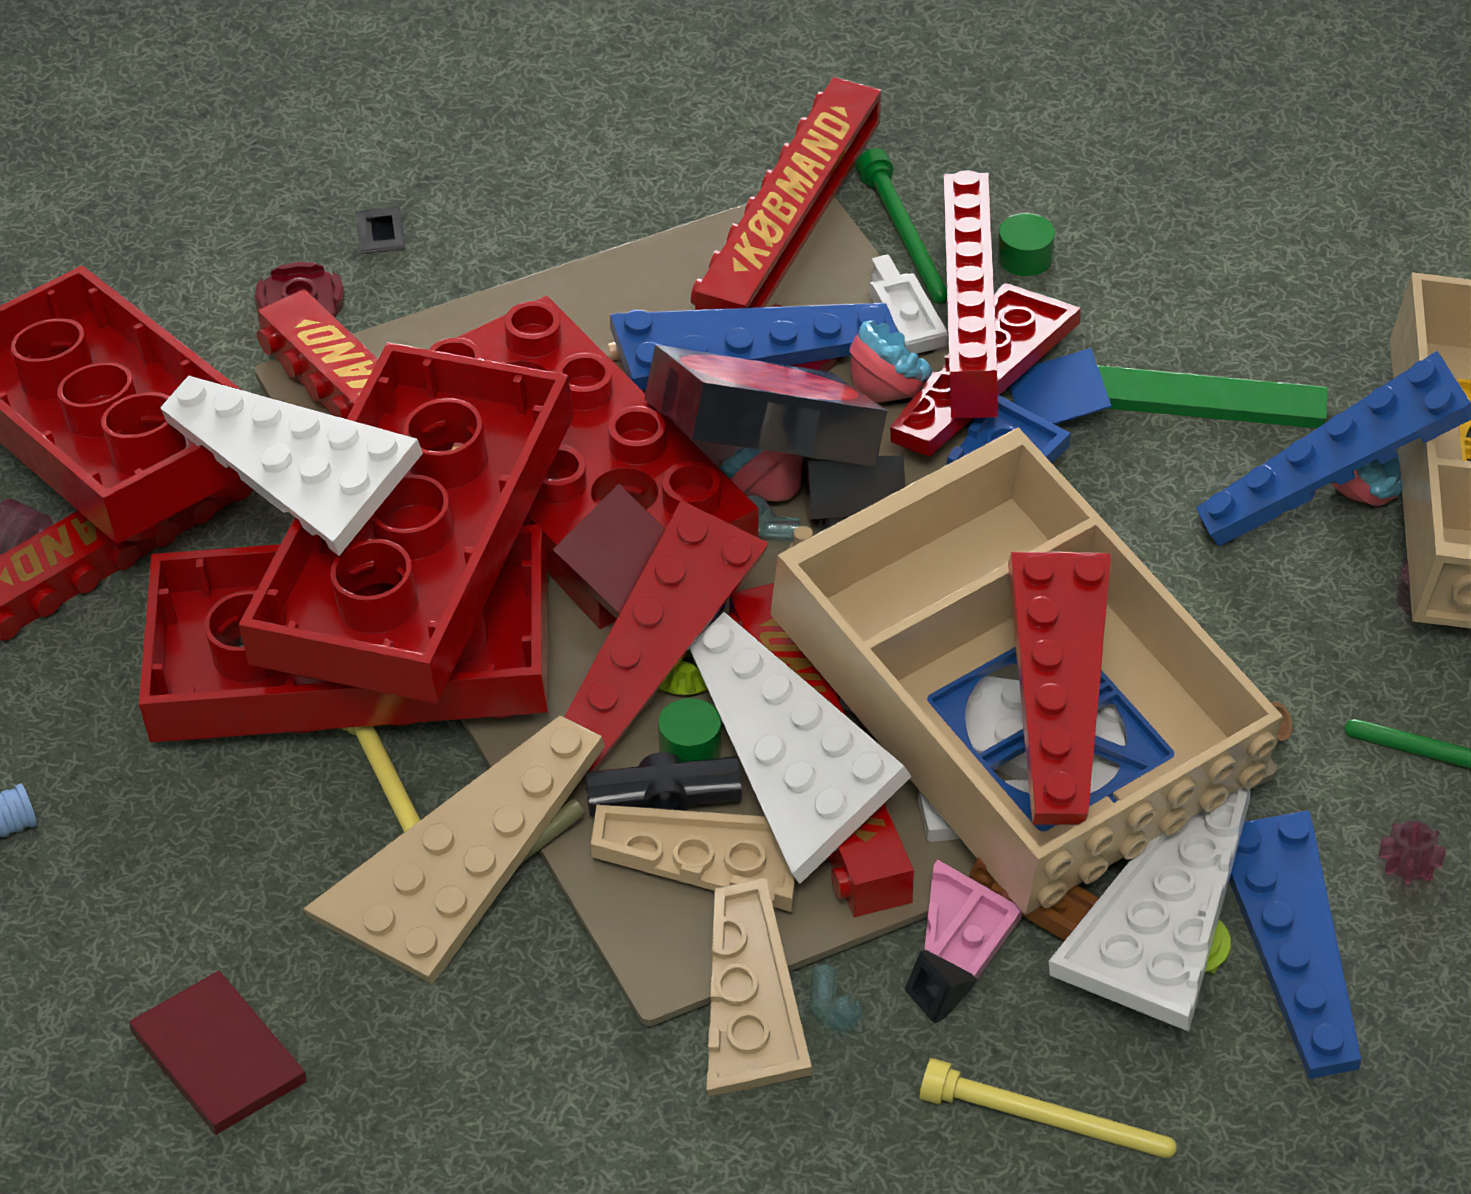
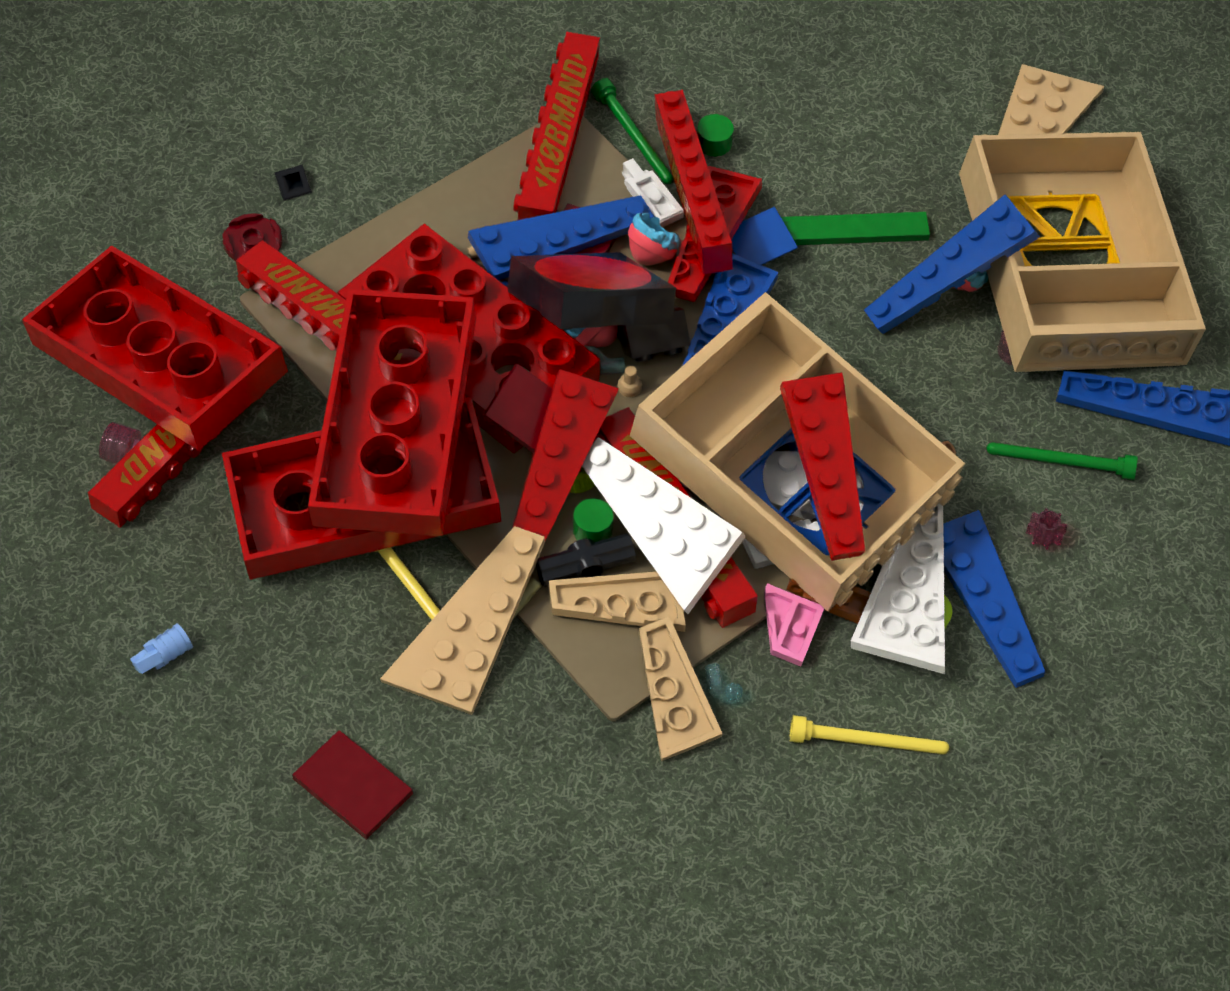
camera: 15 degrees left, 10 degrees up
(297, 458) = (314, 381): white wing -> none
(938, 985) = (784, 665): black slope -> none

